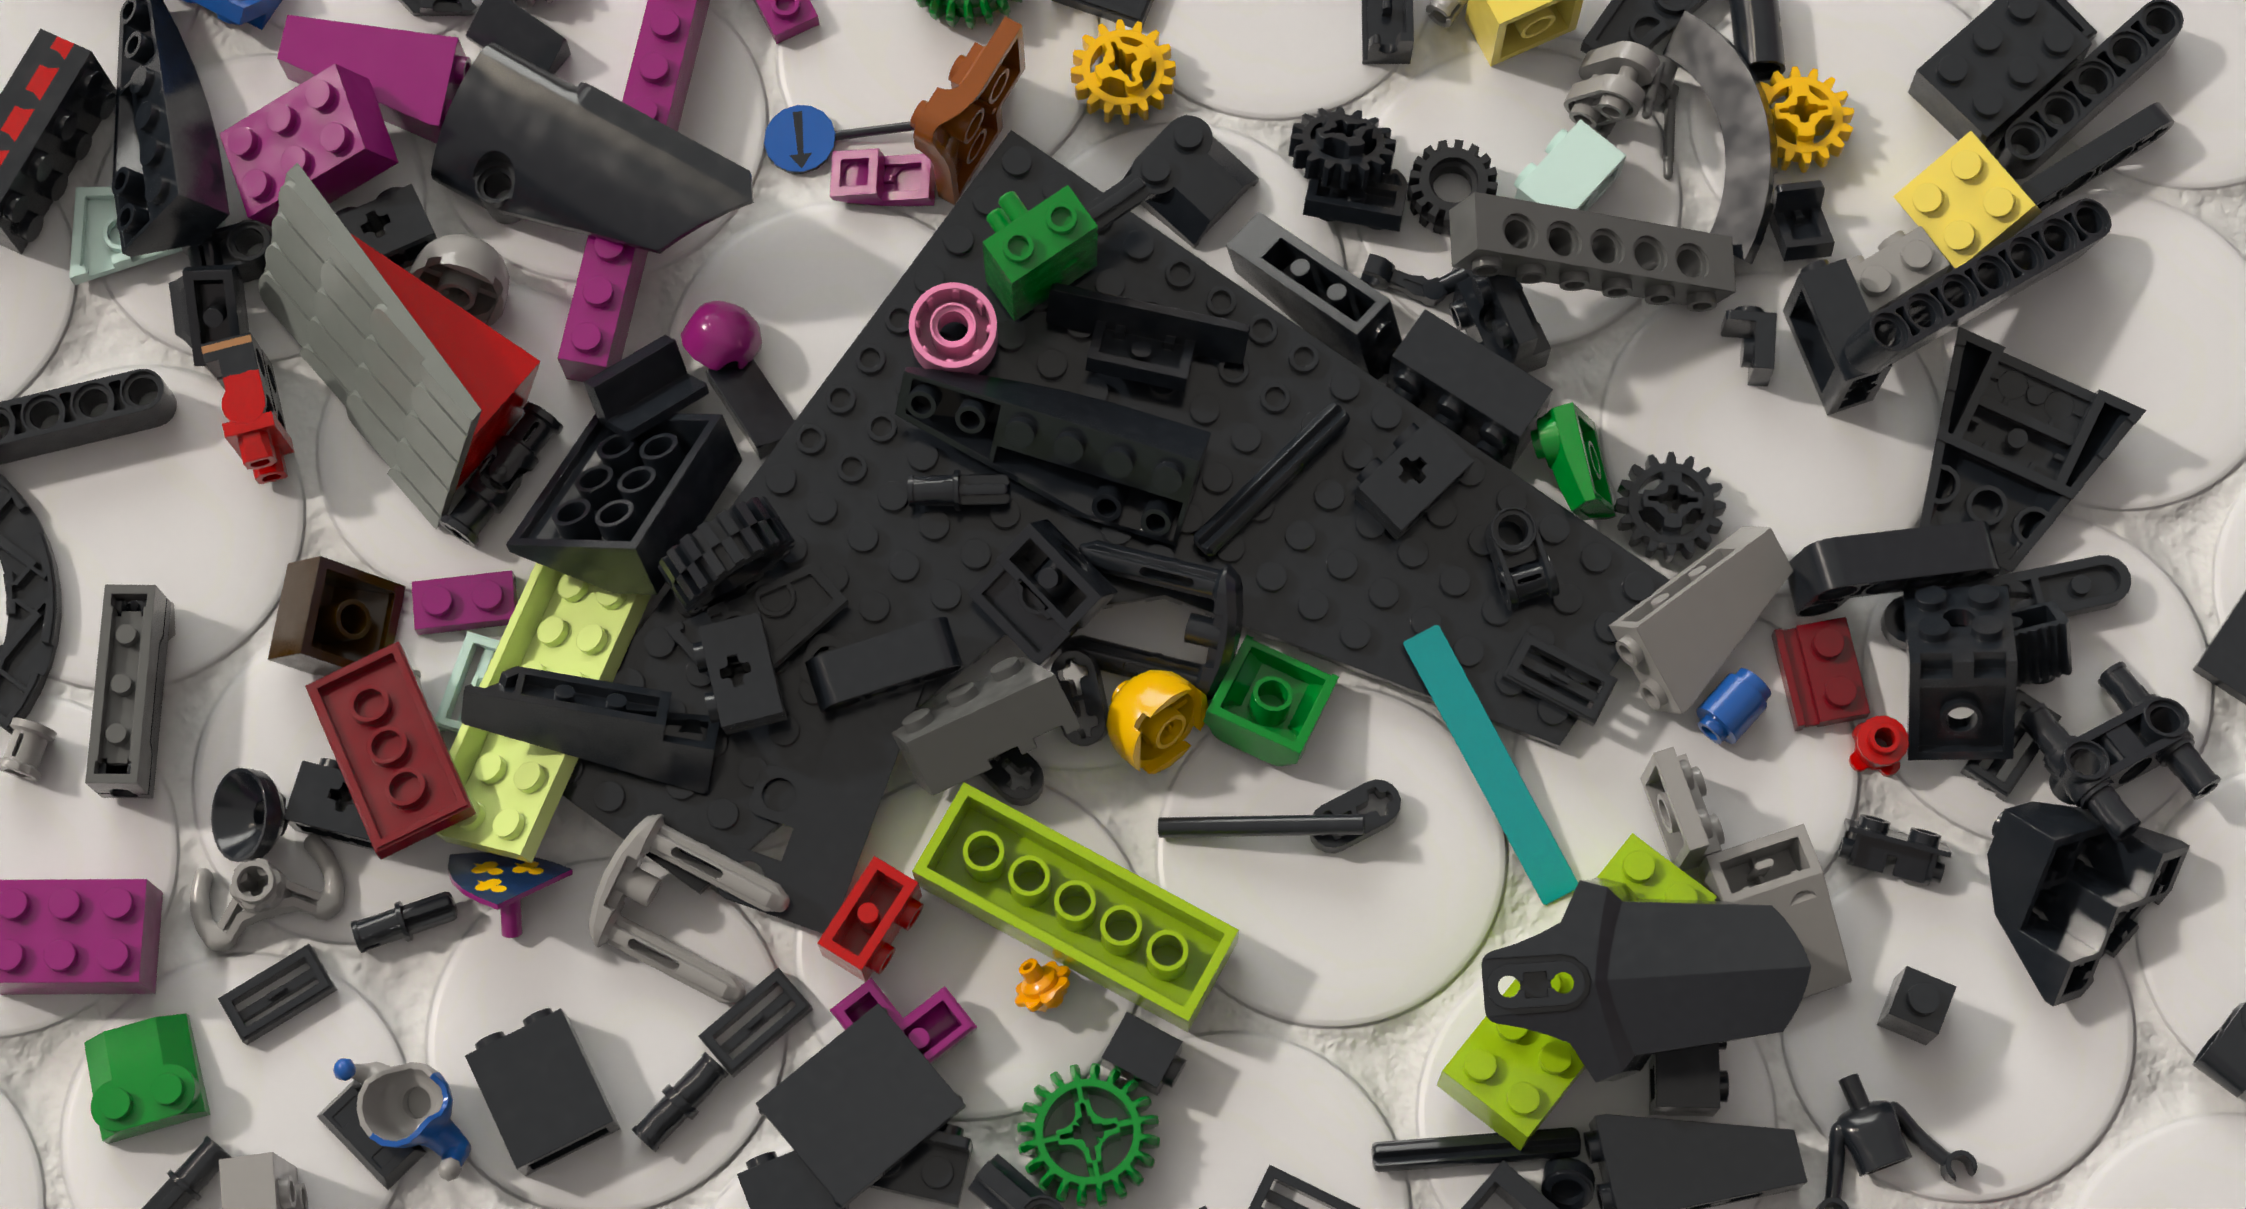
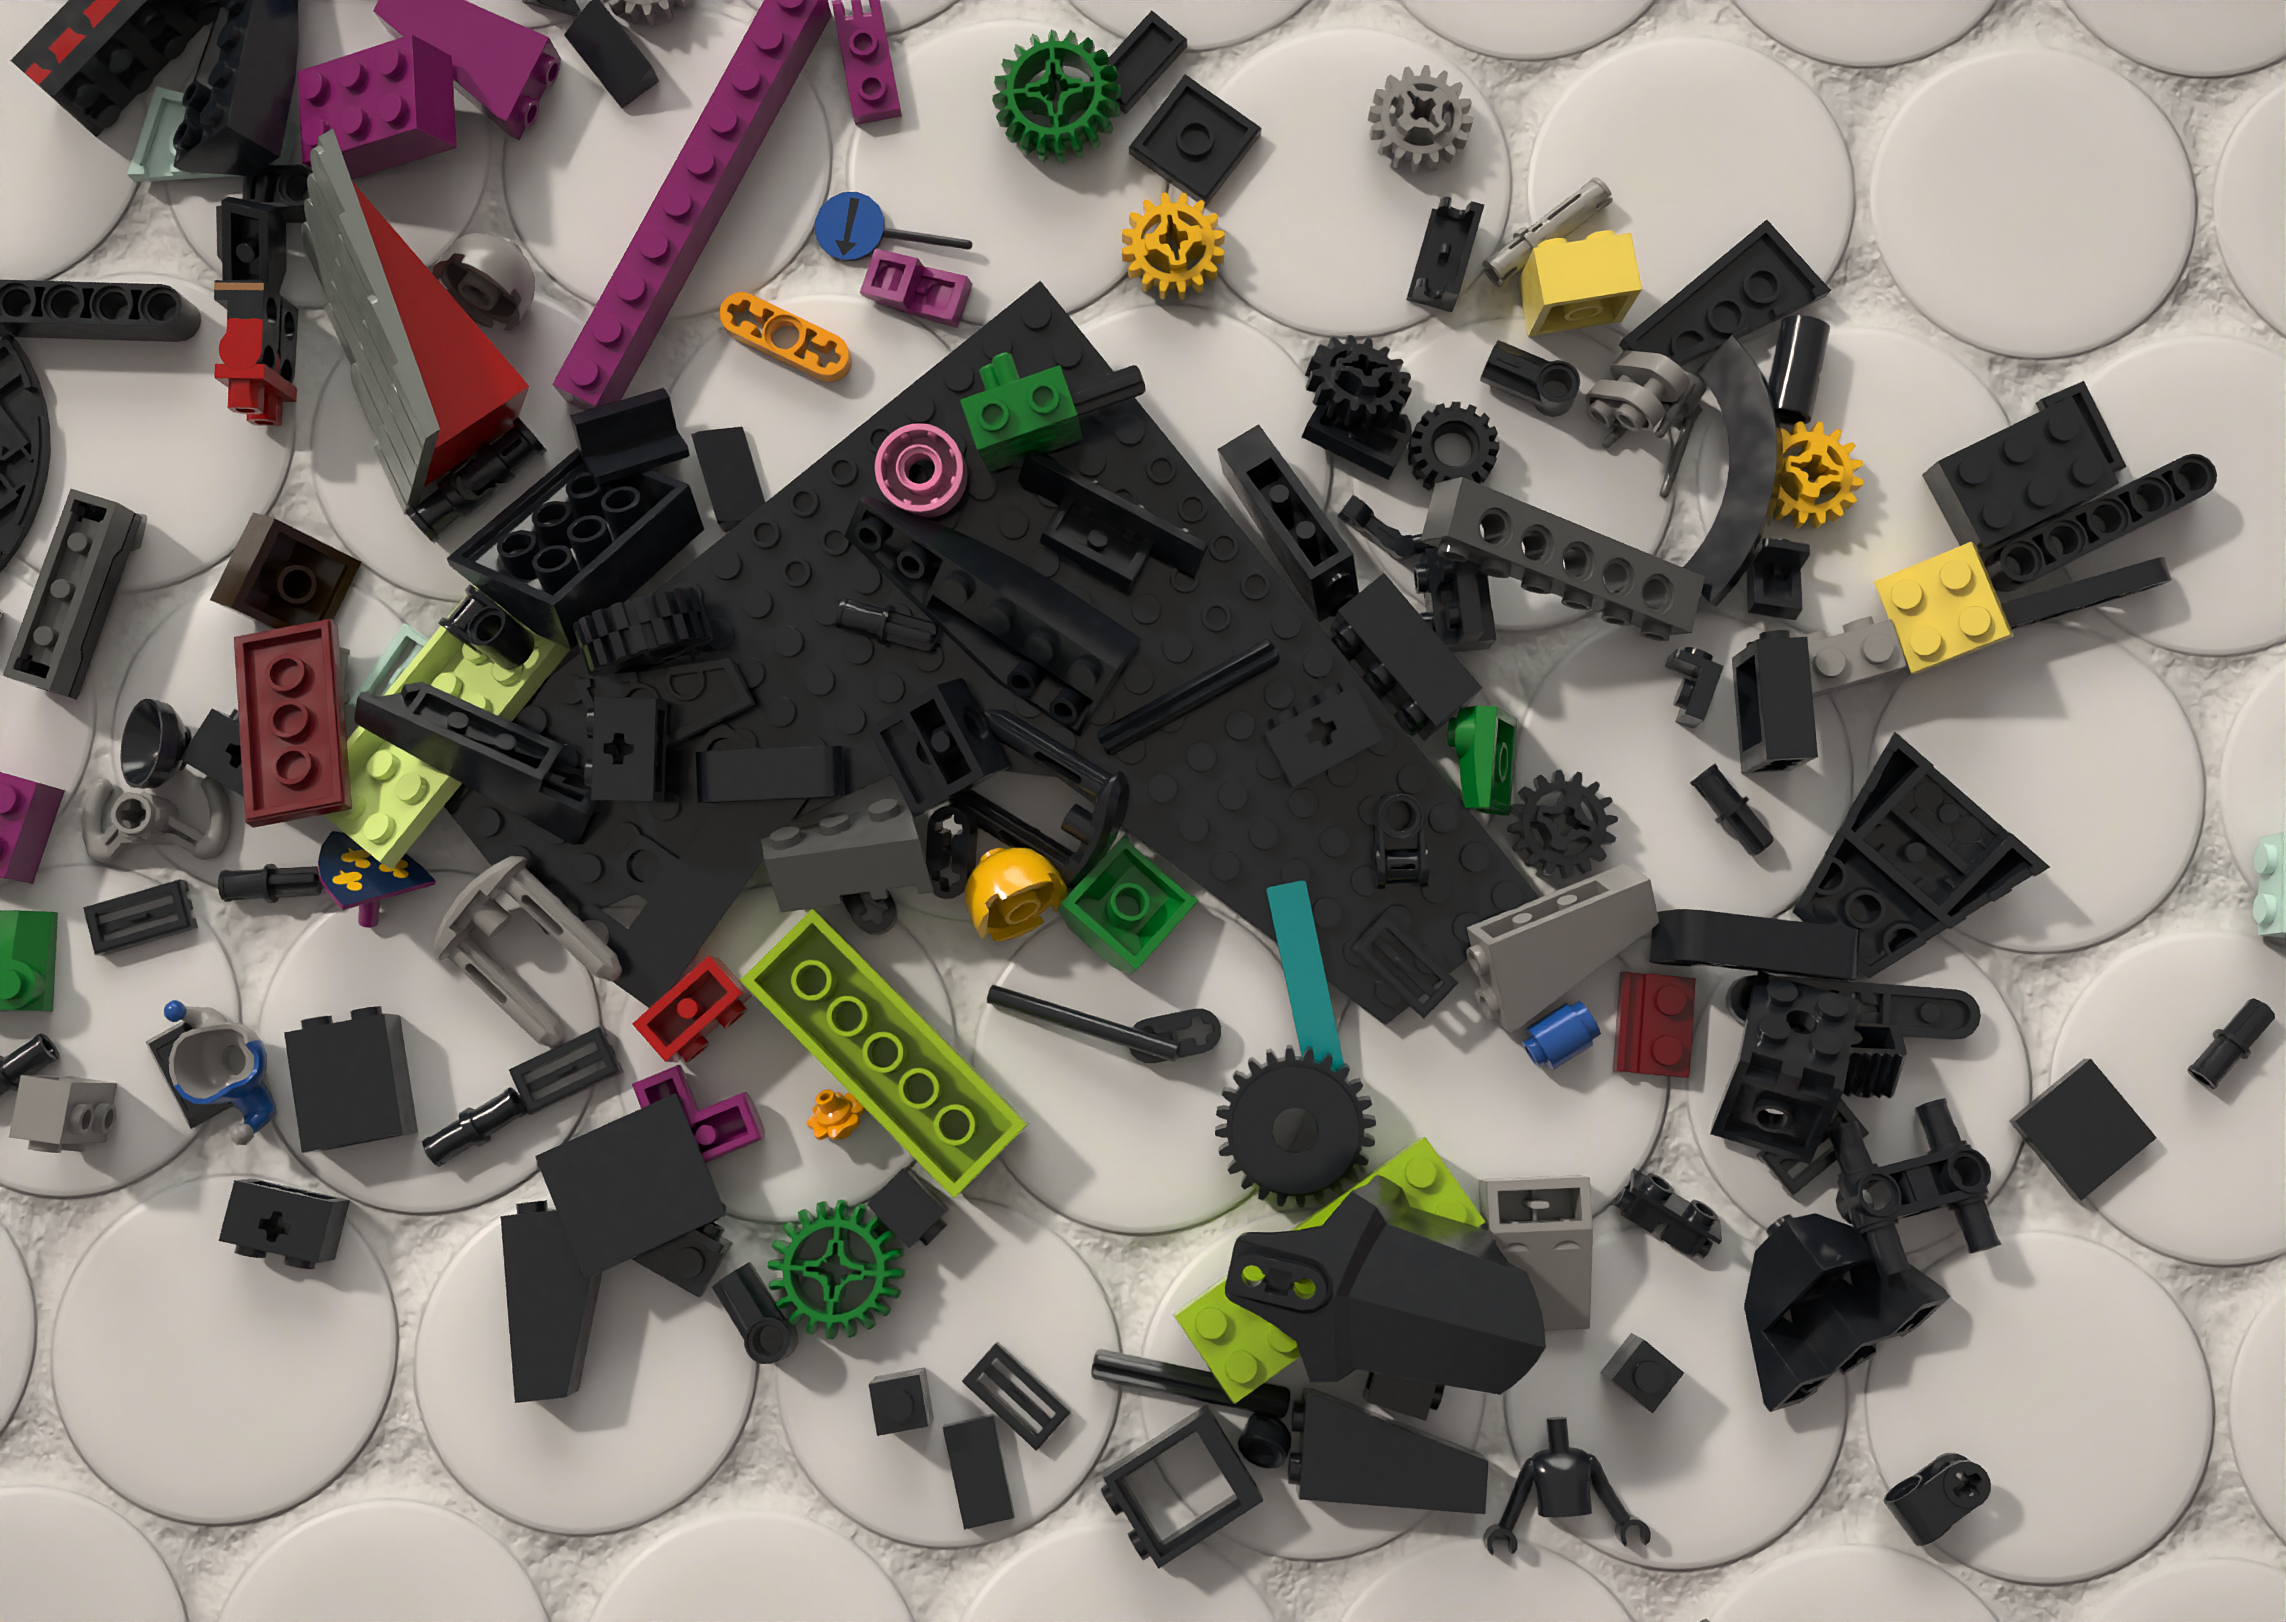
camera: 15 degrees right, 10 degrees up
(402, 219) = (430, 210): black brick -> none
(463, 602) = (409, 592): magenta plate -> none
(563, 604) = (490, 630): none -> black piece
(578, 158) = (622, 191): black panel -> none
(722, 334) = (717, 403): magenta hair -> none
(805, 251) = (749, 333): none -> light orange beam
(964, 121) = (999, 261): dark orange slope -> none
(1190, 178) = (1204, 369): black slope -> none
(1458, 870) = (1303, 1085): none -> black gear
(1502, 99) = (1524, 377): none -> black piece
(1574, 171) = (1568, 472): light aqua brick -> none
(1679, 809) = (1478, 1127): light grey plate -> none
(1829, 449) = (1732, 810): none -> black axle
(1871, 755) = (1673, 1114): red brick -> none
(1977, 286) = (1926, 698): black beam -> none

